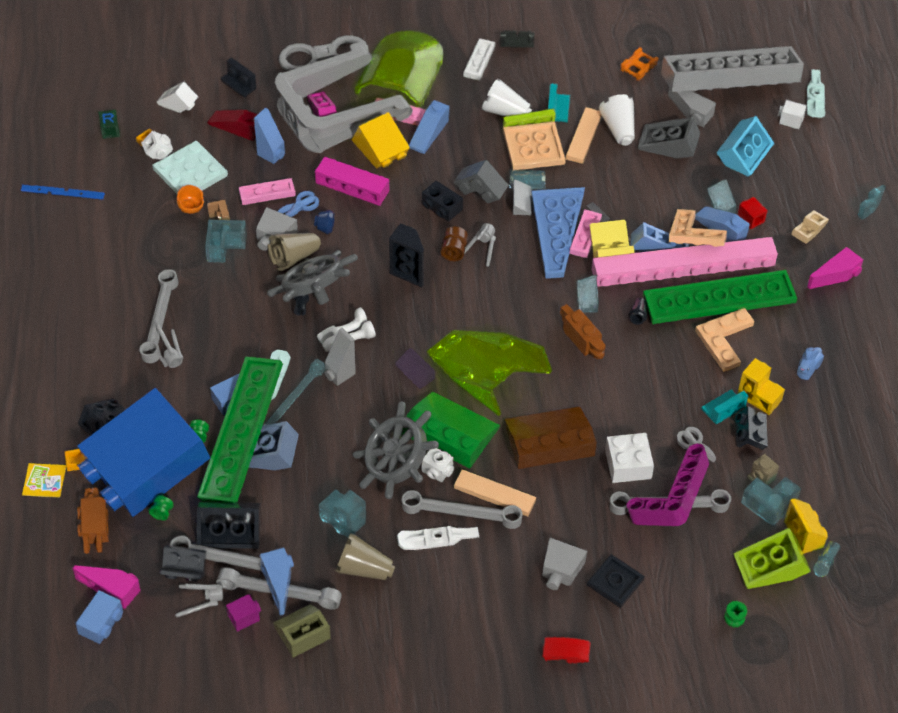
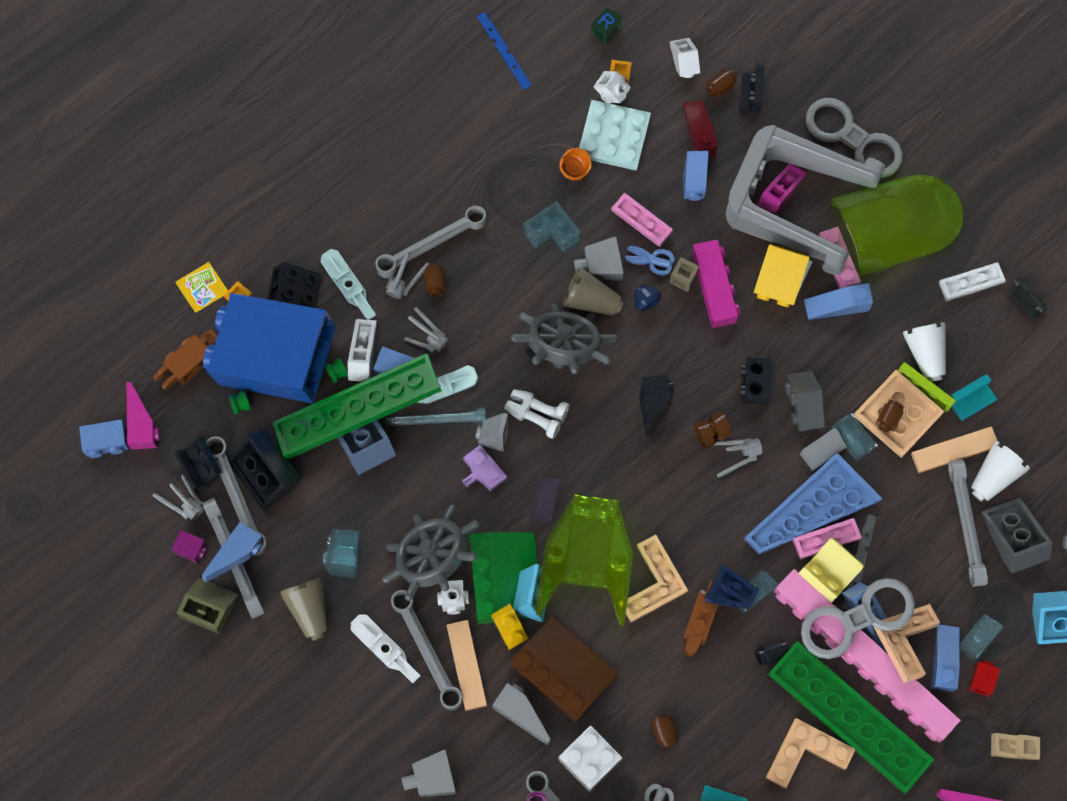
camera: 55 degrees right, 20 degrees up
(128, 387) = (340, 274): none -> light aqua piece
(190, 330) = (435, 280): none -> reddish brown brick
(199, 406) = (362, 350): none -> white slope
(216, 92) = (721, 83): none -> reddish brown brick
(218, 209) = (584, 202): medium nougat bracket -> none
(234, 358) = (435, 339): none -> light grey plant
(331, 190) = (684, 274): none -> dark tan brick
(358, 391) = (483, 469): none -> lavender plate
(477, 412) = (527, 593): none -> medium azure slope
(491, 442) = (509, 626): none -> yellow plate
(533, 333) = (668, 585): none -> light nougat plate
(534, 145) = (890, 416): none -> reddish brown brick
(559, 478) = (517, 708): none -> light grey slope
(578, 298) = (731, 590): none -> dark blue wing
(643, 158) = (958, 476): none -> light grey piece
(645, 403) = (664, 731): none -> reddish brown brick
(658, 242) = (857, 618): none -> light grey bar

